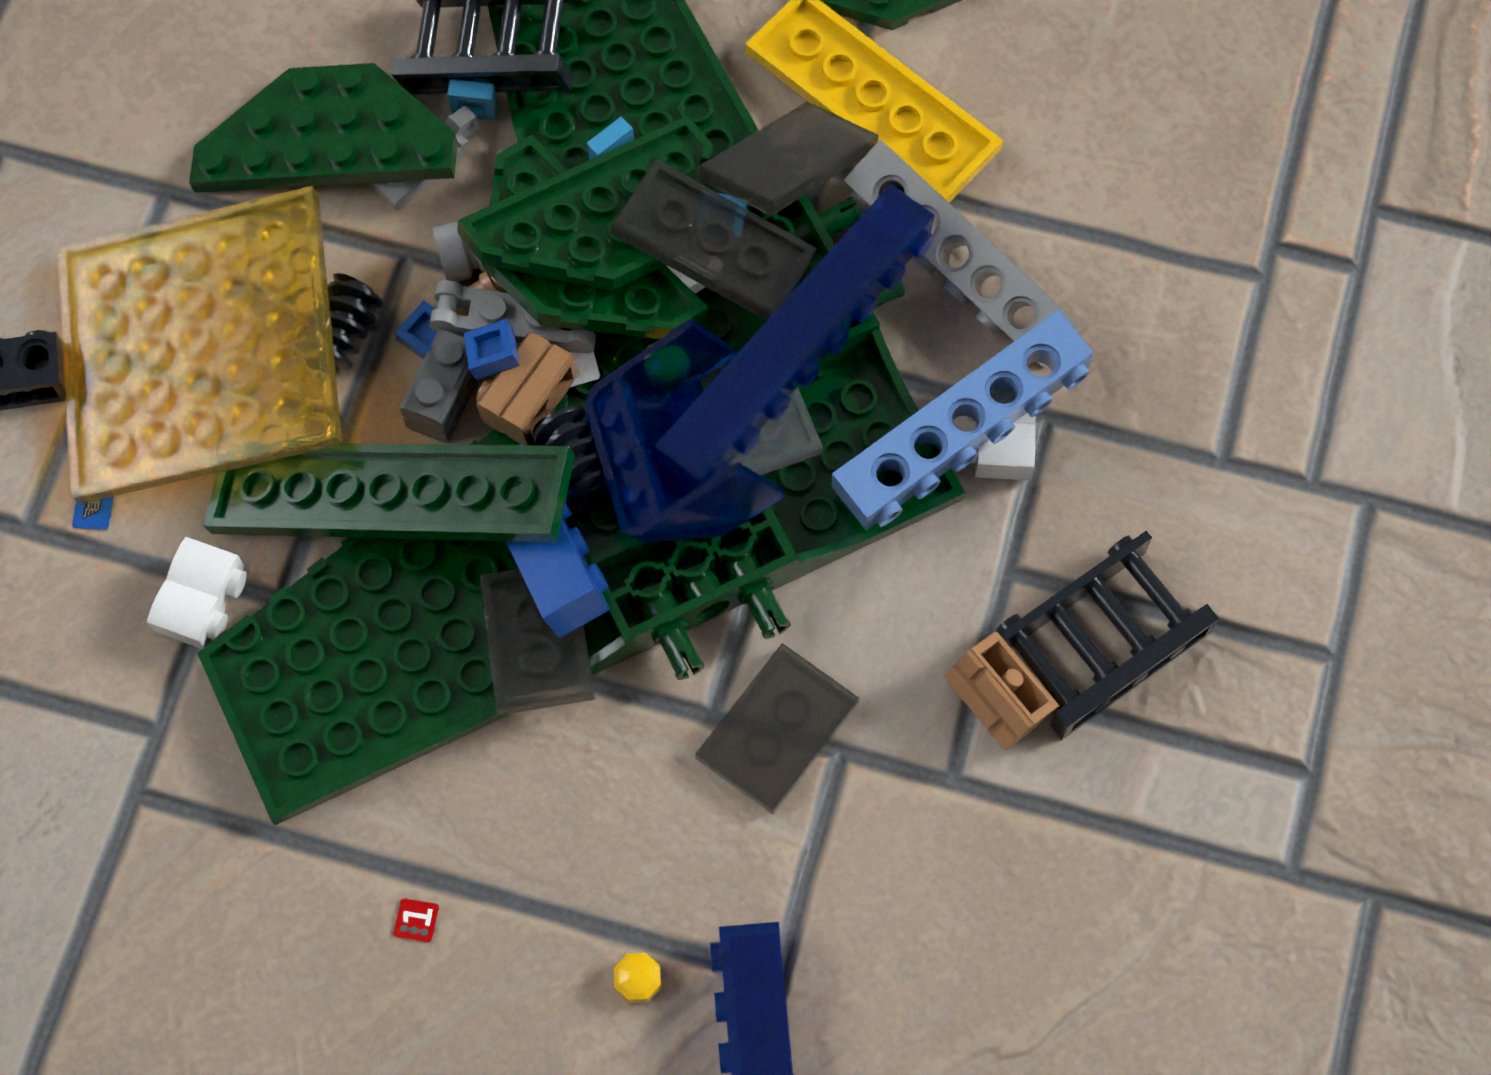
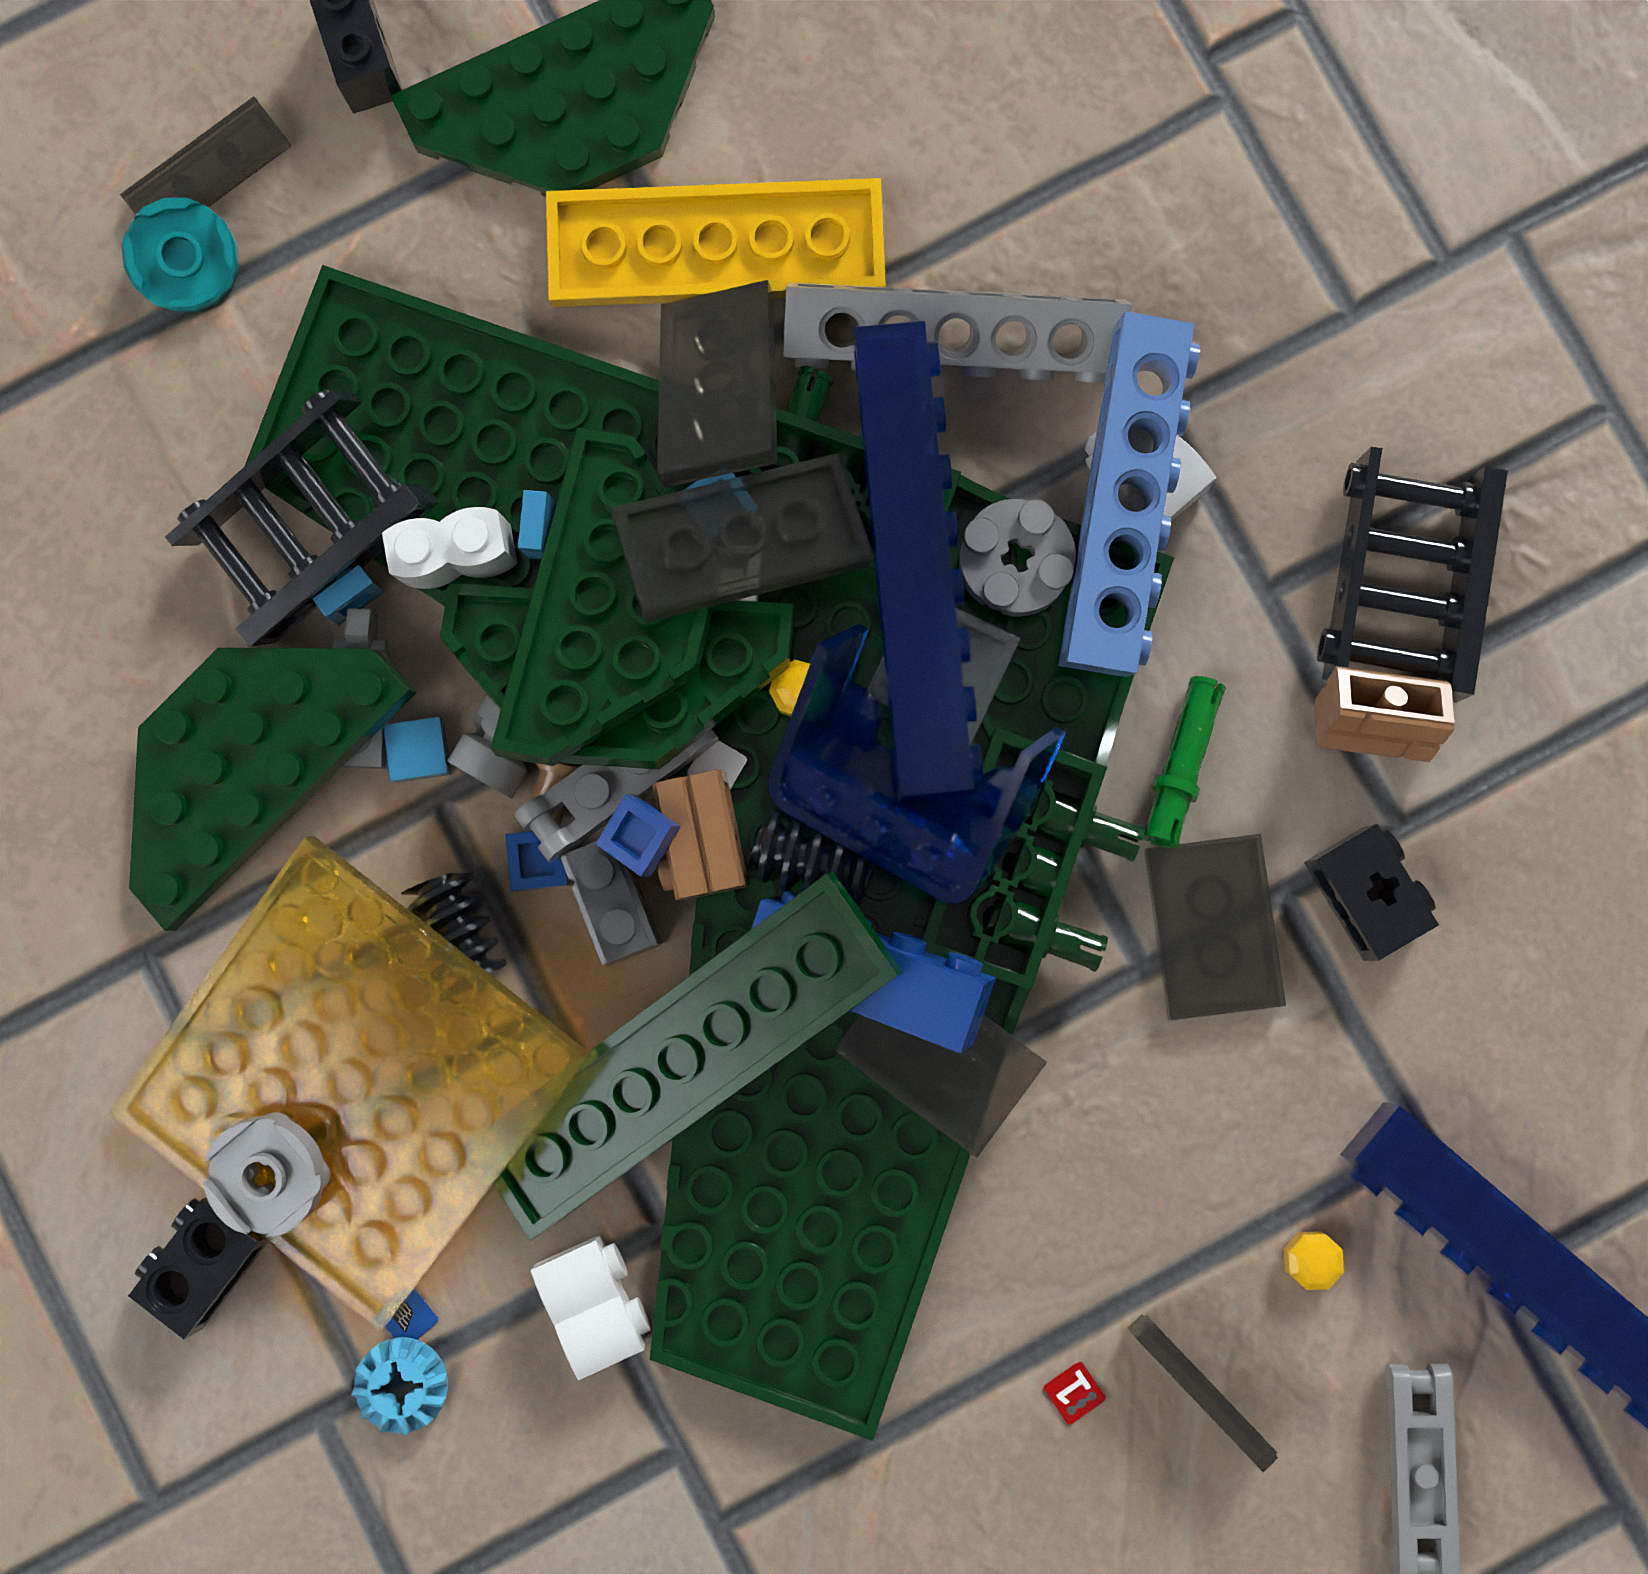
camera: 40 degrees left, 15 degrees up
(49, 561) = (417, 1364): none -> medium azure gear
(118, 365) = (297, 1169): none -> light grey plate
(421, 213) = (417, 749): none -> dark azure tile
(490, 984) = (1203, 1392): none -> clear smoke tile
(550, 115) = (435, 553): none -> white brick
(837, 620) = (1179, 777): none -> green pin
(857, 379) = (1031, 526): none -> light grey plate
(890, 763) = (1346, 874): none -> black brick

